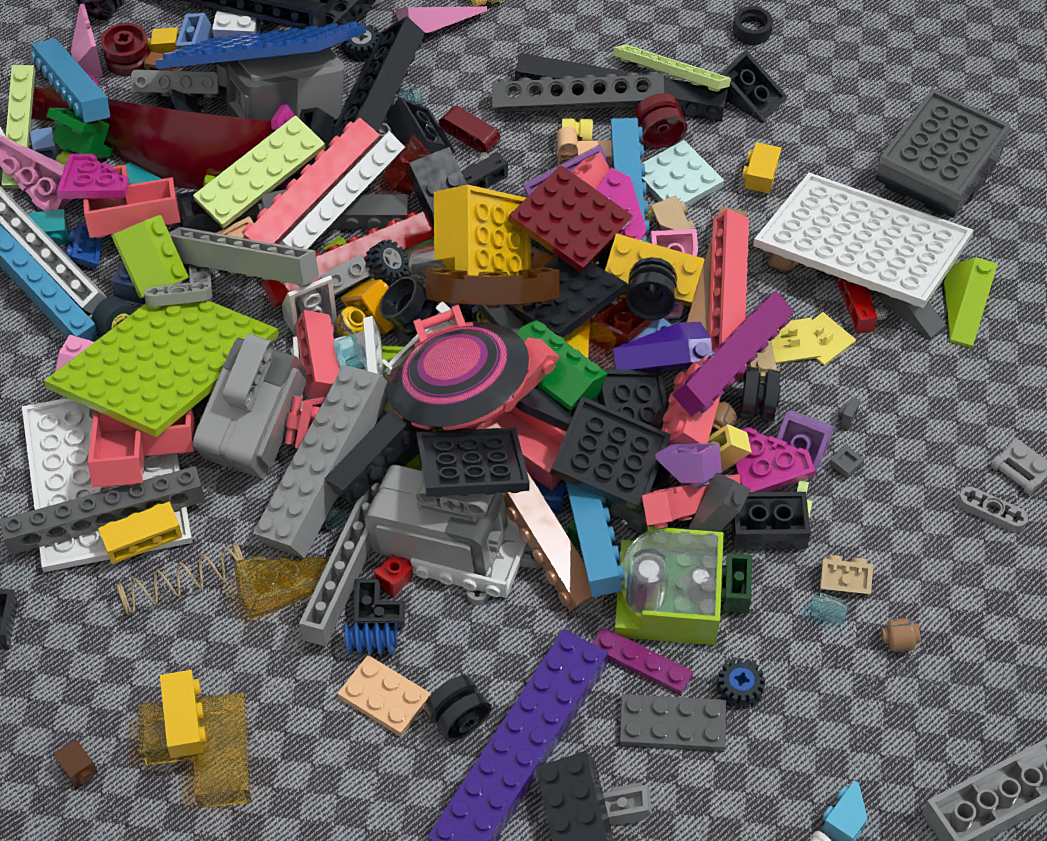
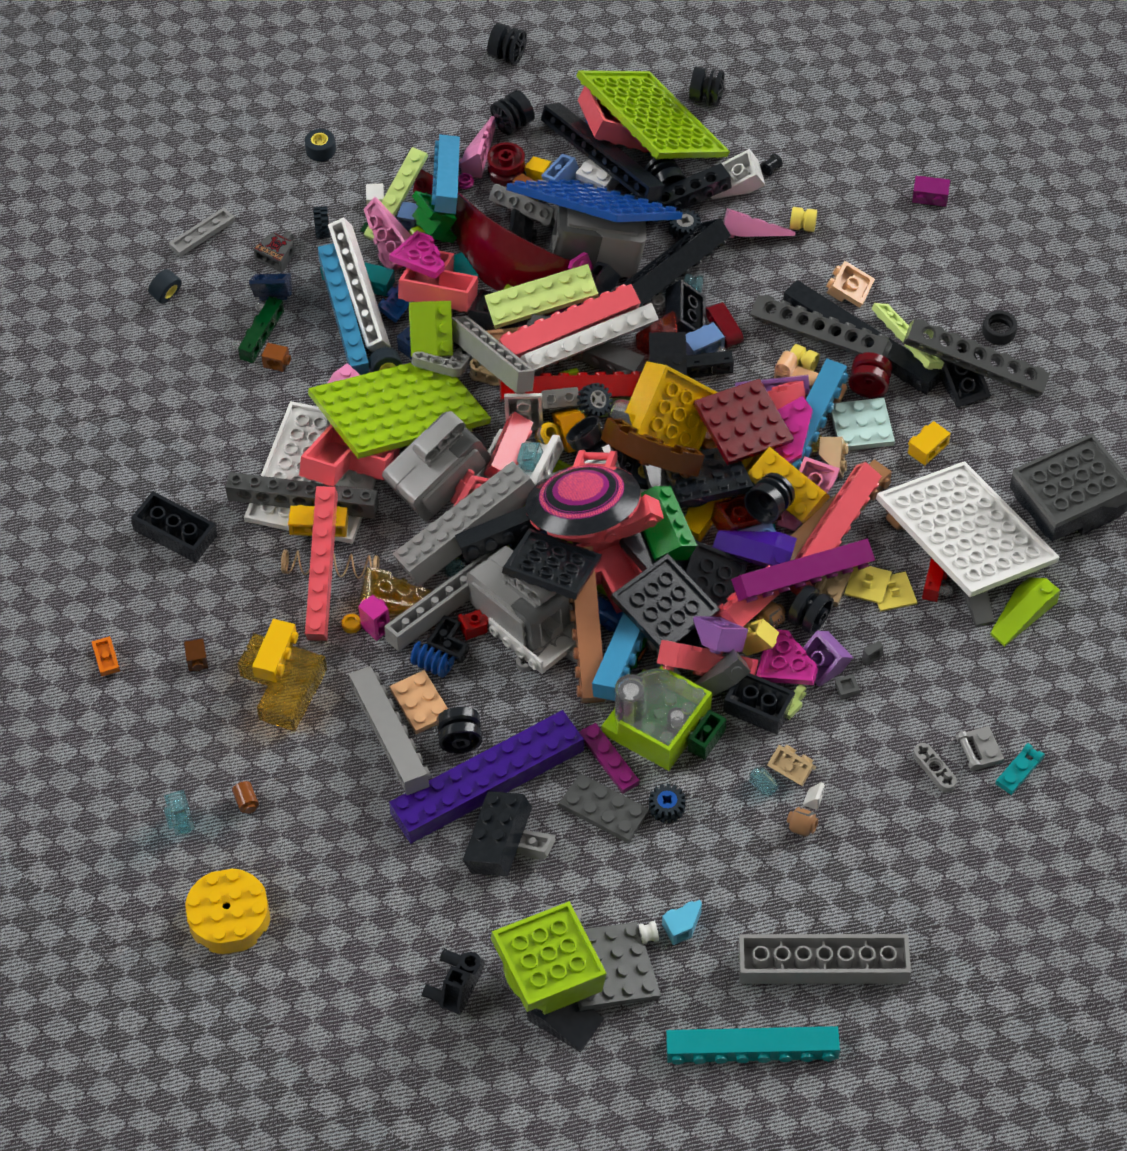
camera: 30 degrees right, 0 degrees up
(177, 581) = (321, 563): none -> coral brick
(236, 284) = (483, 374): none -> tan piece
(245, 638) = (351, 623): none -> yellow tile
(275, 617) = (374, 616): none -> dark pink brick
(376, 748) = (389, 731): none -> light grey brick
(465, 149) = (704, 340): none -> medium blue brick
(575, 38) = (849, 284): none -> light nougat plate
(759, 60) = (932, 346): none -> dark grey brick
(892, 599) = (814, 796): none -> white slope

